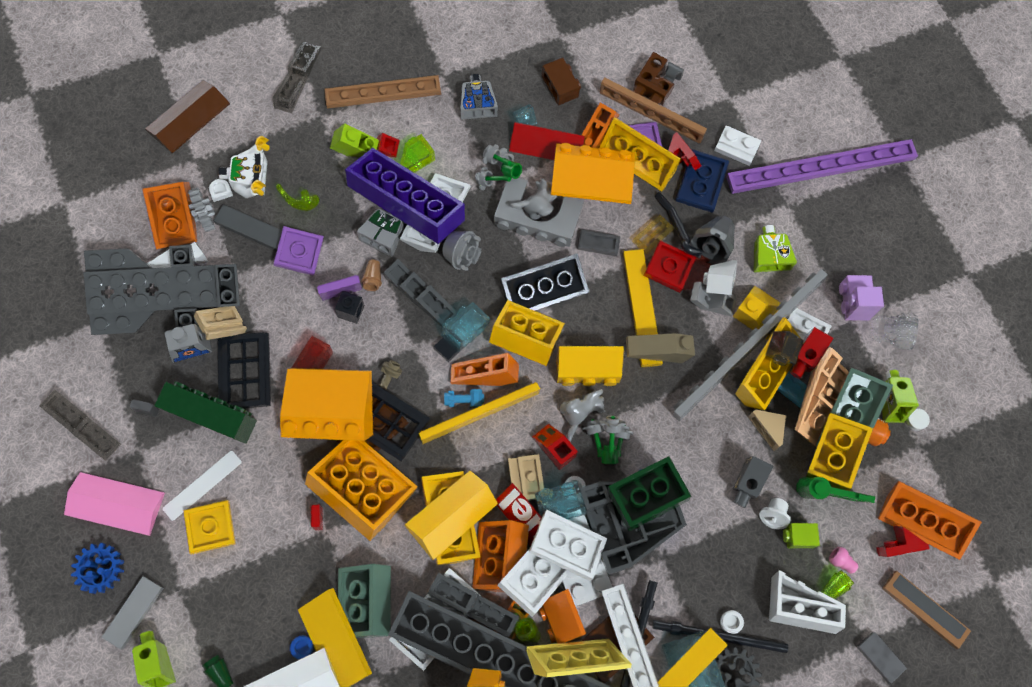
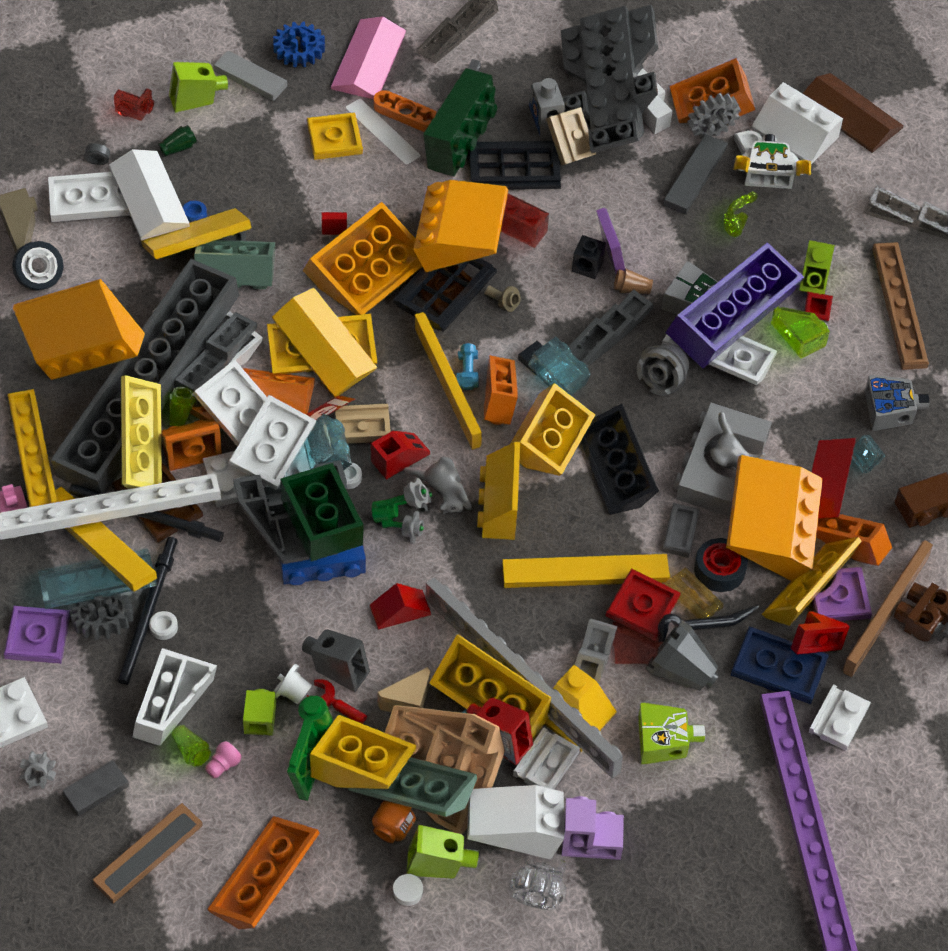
camera: 95 degrees right, 15 degrees down
(194, 453) = (399, 103): none -> orange beam
(204, 151) = (798, 122): none -> white slope
(298, 251) = (665, 212): medium lavender tile -> none
(503, 160) = (775, 414): plant -> none
(629, 225) = (718, 577): none -> wheel
(661, 347) = (522, 572): dark tan slope -> none
(693, 438) = (399, 606): none -> red slope
(721, 277) = (621, 656): white slope -> none
(777, 486) = (338, 704): none -> red piece
(784, 347) = (503, 685): clear smoke brick -> none
(865, 342) = (517, 818): none -> white slope
(905, 543) = (236, 834): red slope -> none

